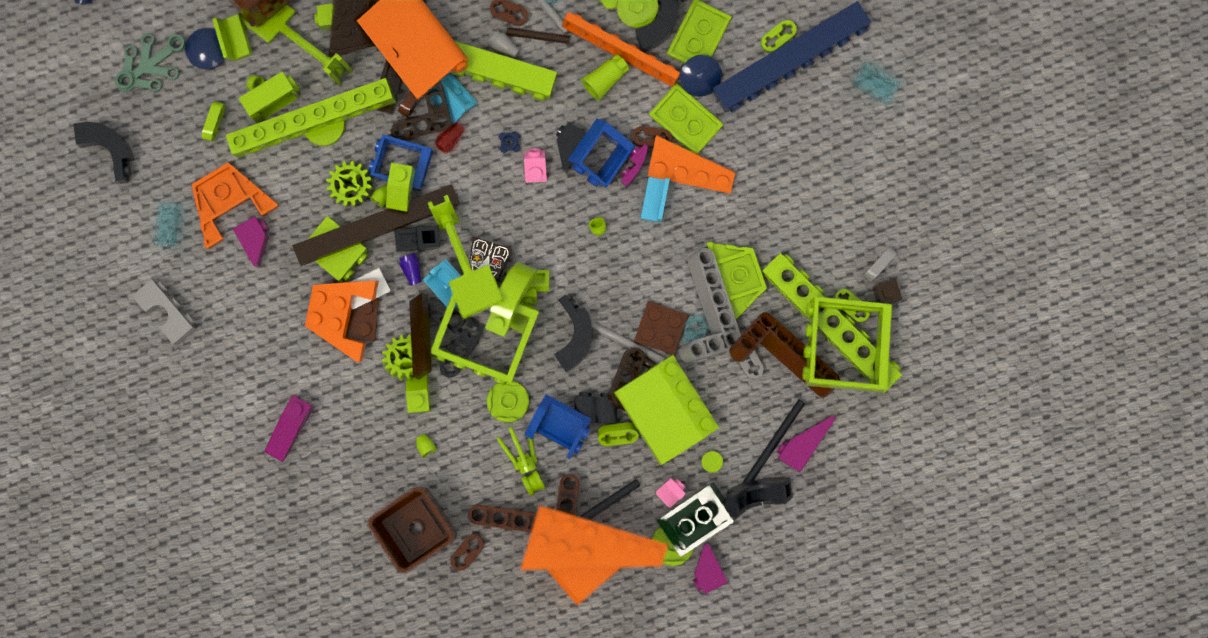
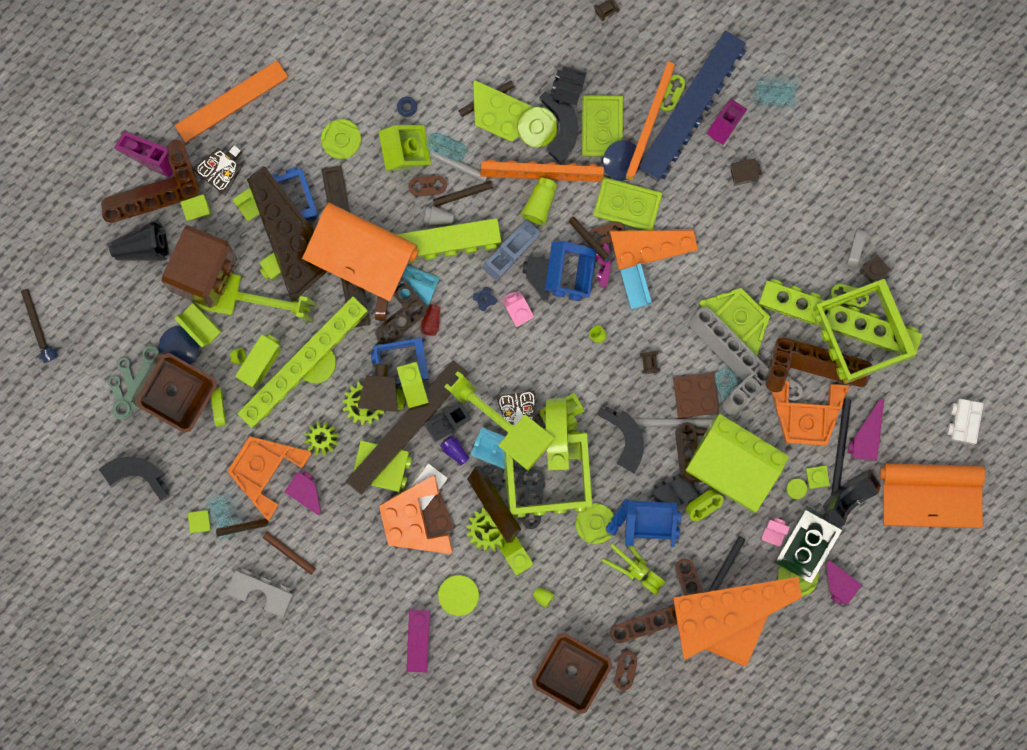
camera: 30 degrees left, 0 degrees up
(143, 218) = (199, 521): none -> lime tile
(156, 80) = (192, 394): none -> reddish brown plate
(176, 242) = (241, 527): none -> dark brown bar
(211, 288) = (289, 553): none -> reddish brown bar
(301, 197) = (323, 445): none -> lime gear
(347, 405) = (458, 595): none -> lime tile
(365, 178) = (379, 391): none -> dark brown torso
(528, 407) = (618, 518): none -> blue axle
(556, 109) = (511, 250): none -> sand blue slope
(633, 134) = (589, 239): none -> dark brown bar
(633, 276) = (650, 362): none -> dark brown bush
(737, 460) = (817, 477): none -> lime plate
(744, 51) = (650, 121): none -> orange tile
(752, 404) = (808, 422): none -> orange wing
(811, 142) = (745, 171): none -> dark brown brick
(816, 87) = (726, 121): none -> magenta slope
(831, 522) = (927, 489): none -> orange door
(902, 477) = (965, 421): none -> white brick

